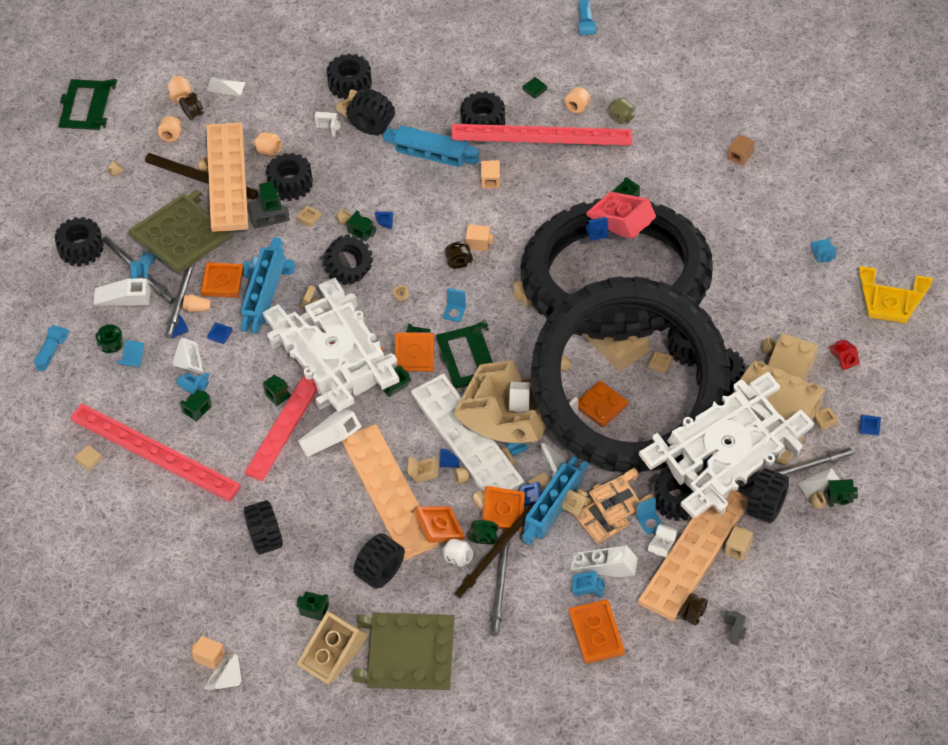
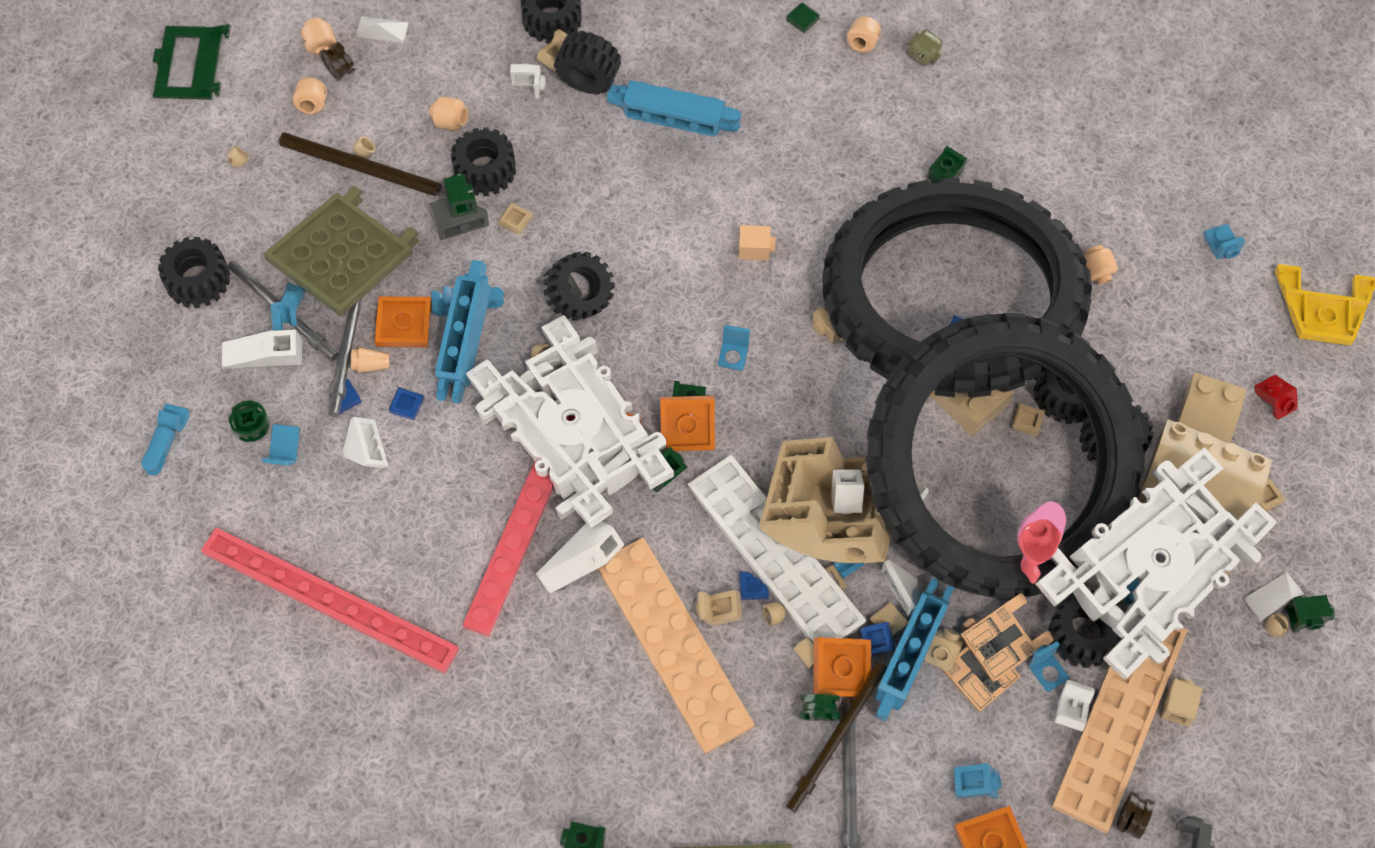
camera: 10 degrees left, 10 degrees up
(88, 457) = (232, 612): tan tile -> none
(192, 383) = (375, 487): dark azure bracket -> none
(196, 405) = (383, 521): dark green brick -> none
(227, 177) = (396, 167): light nougat plate -> none
(263, 527) = (499, 721): black tyre -> none
(278, 388) = (496, 492): dark green brick -> none
(307, 297) = (526, 344): tan tile -> none
(343, 216) = (564, 218): tan hinge -> none
(360, 226) = (590, 232): dark green brick -> none
(379, 560) = (675, 768): black tyre -> none
(385, 219) = (621, 218): blue tile -> none
(397, 293) = (651, 332): tan hinge -> none
(439, 523) = (753, 697): orange plate -> none
(457, 552) = (784, 741): white head -> none
(458, 255) = (731, 270): dark brown wheel -> none
(464, 352) = (756, 420): dark green piece -> none
(483, 103) = (734, 74): black tyre -> none
(490, 174) = (760, 147): light nougat brick -> none
(541, 134) = (822, 87): coral plate -> none
(597, 228) = (928, 230): blue bracket -> none
(601, 404) = (957, 489): orange plate -> none
(609, 561) = (996, 743): white slope -> none
(624, 212) = (958, 205): coral slope -> none
(644, 422) = (1040, 537): none -> coral hair
(727, 261) = (1100, 264): none -> light nougat head
(741, 149) = (1092, 98): medium nougat brick -> none
(767, 495) = (1216, 629): black tyre -> none
(768, 345) = (1174, 389): tan hinge -> none
(831, 457) = (1284, 556): flat silver bar -> none
(870, 425) = (1328, 503): blue tile -> none

